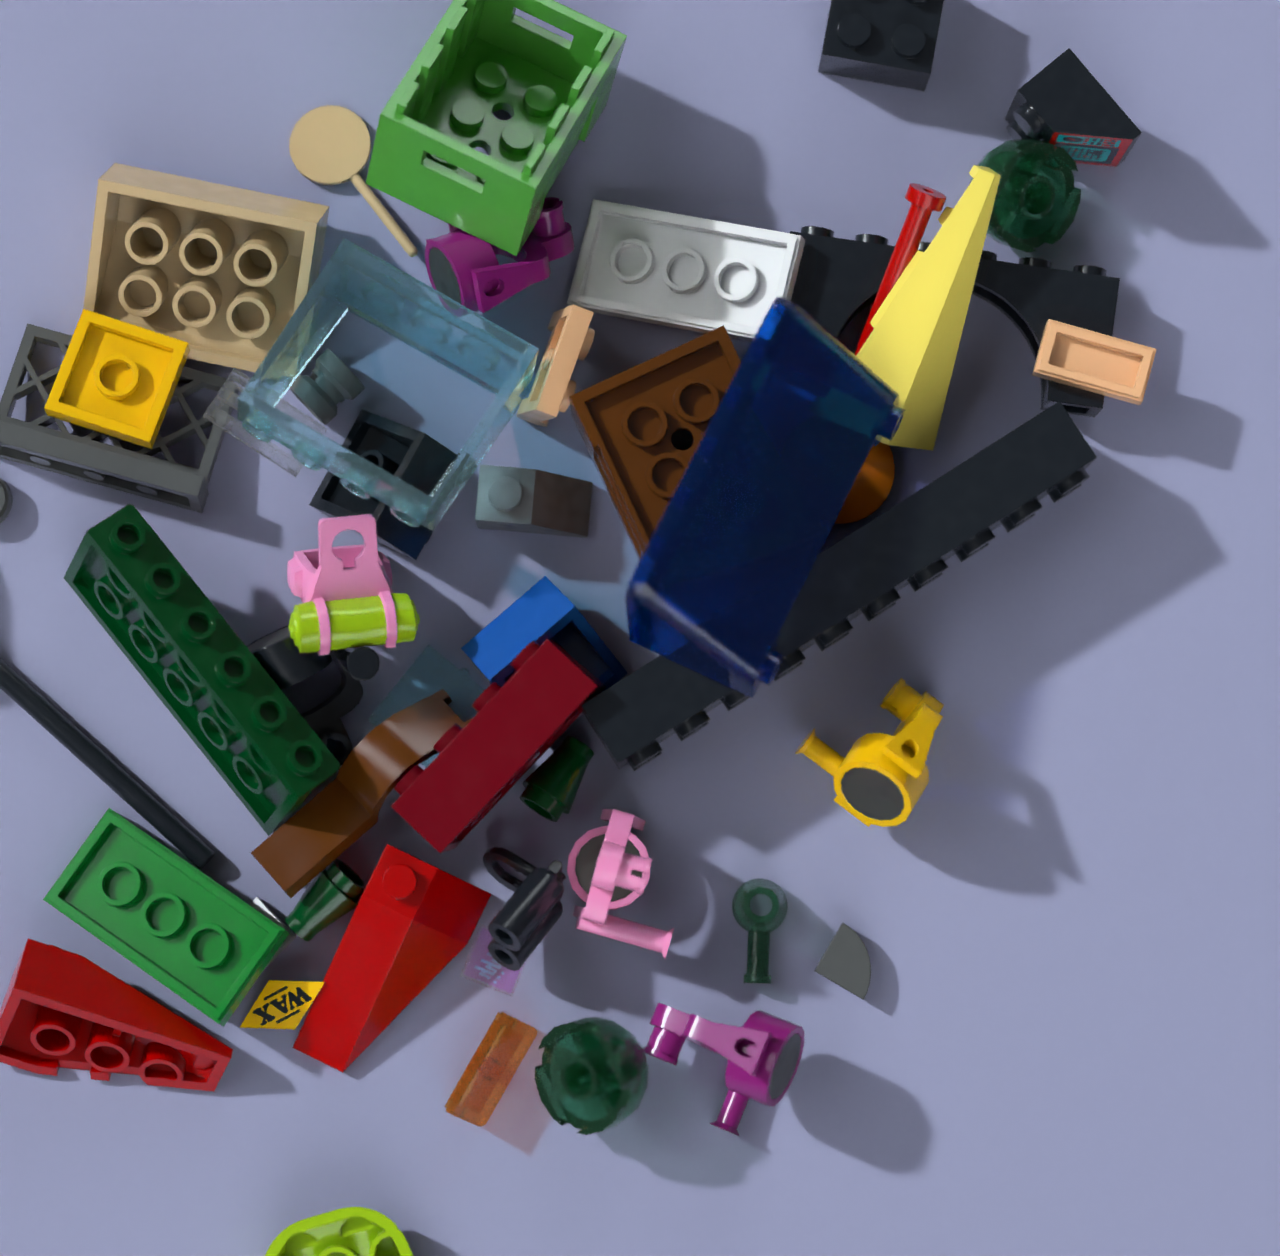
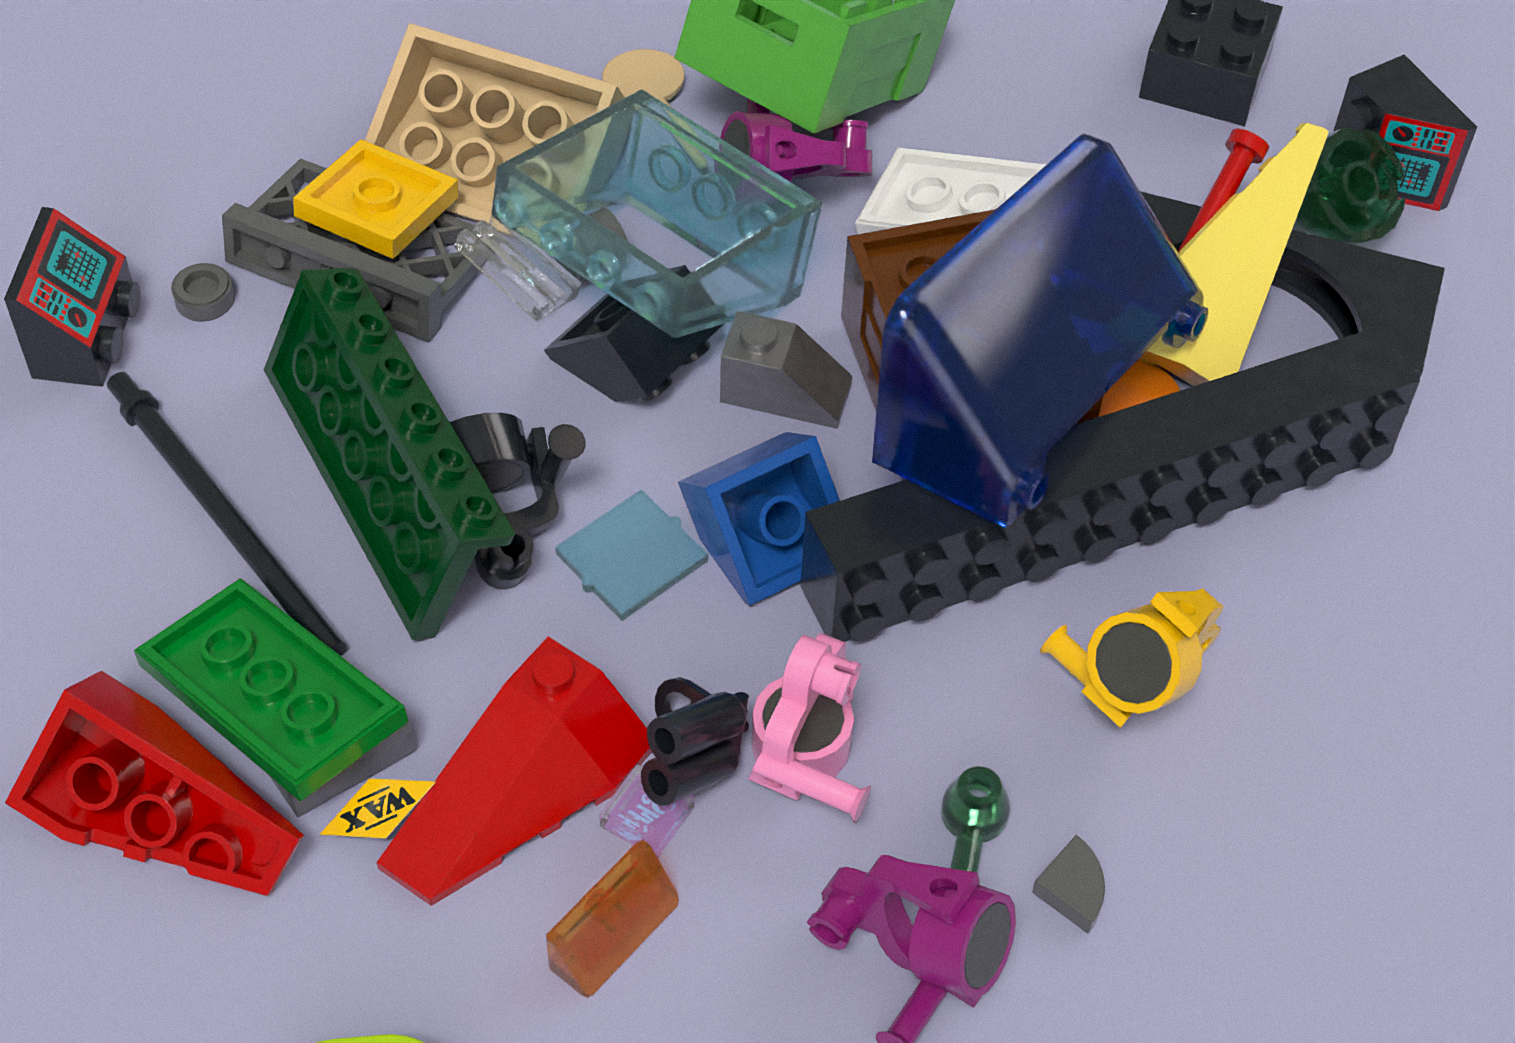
camera: 10 degrees right, 30 degrees down
(326, 900) = (456, 705): dark green cone -> none
(347, 593) = (569, 387): bright pink piece -> none
(355, 797) = (519, 602): reddish brown piece -> none
(496, 746) = (696, 561): dark red slope -> none
(552, 386) = (827, 259): light nougat plate -> none
(557, 780) = (755, 635): dark green cone -> none
(591, 1074) = (739, 929): clear green cylinder -> none
(1094, 362) = (1418, 325): light nougat tile -> none

